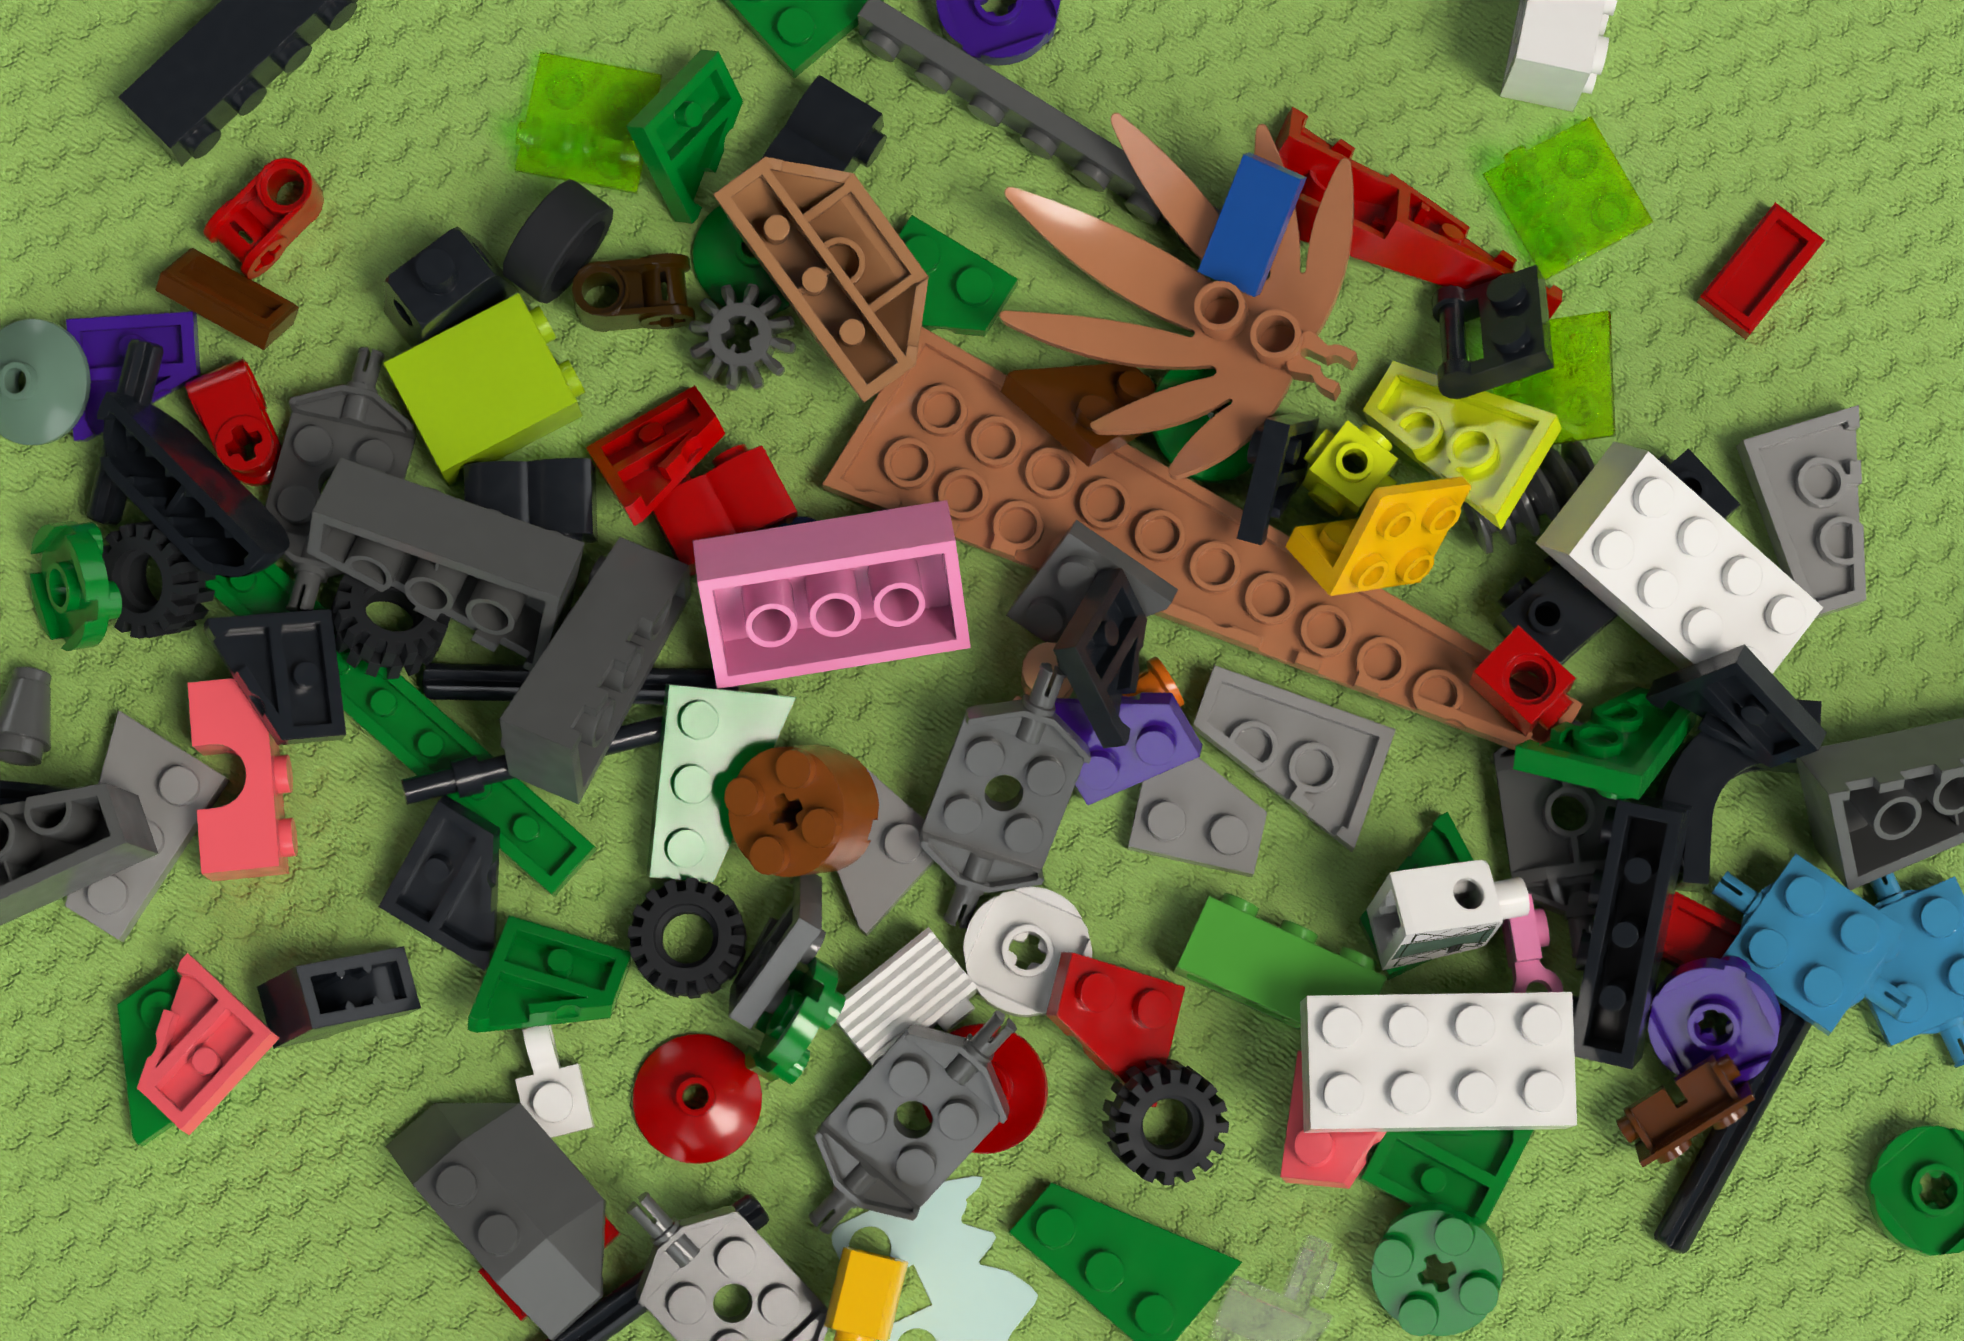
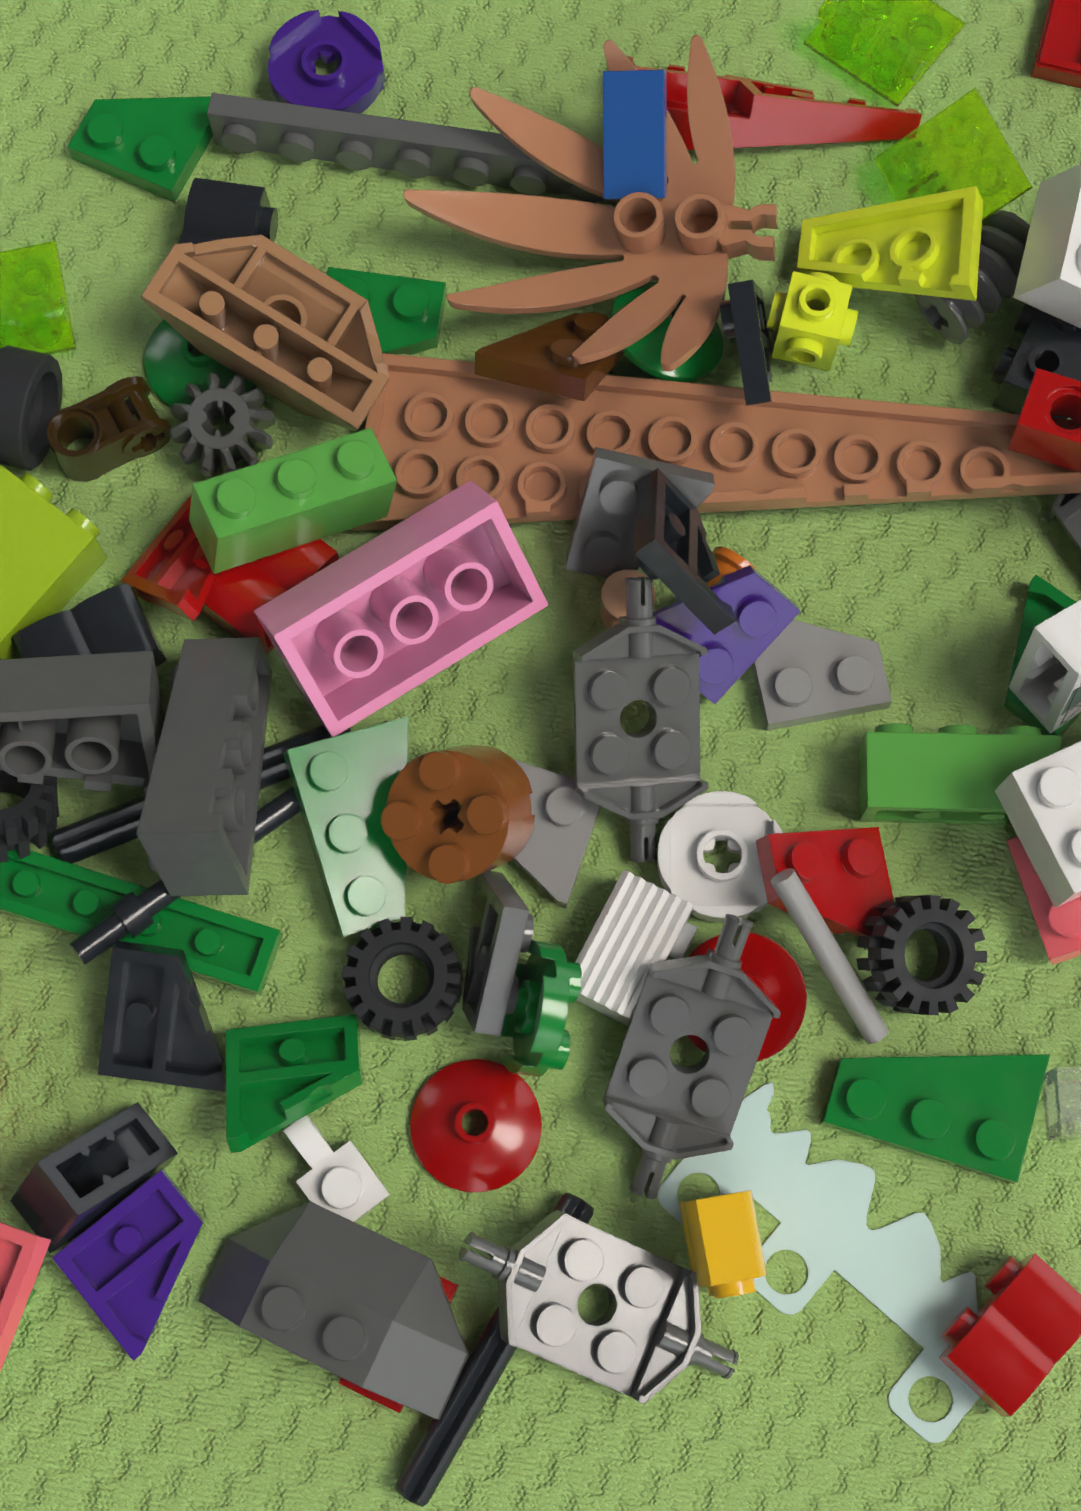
camera: 20 degrees left, 5 degrees down
(344, 1084) = (133, 1259): none -> dark purple wing
(686, 130) = (96, 273): green wing -> none
(772, 450) = (291, 500): none -> bright green brick
(1079, 1086) = (829, 955): none -> light grey bar
(1298, 748) = (879, 575): light grey wing -> none
(1389, 541) = (885, 350): yellow bracket -> none
(1512, 330) = (895, 138): black plate -> none

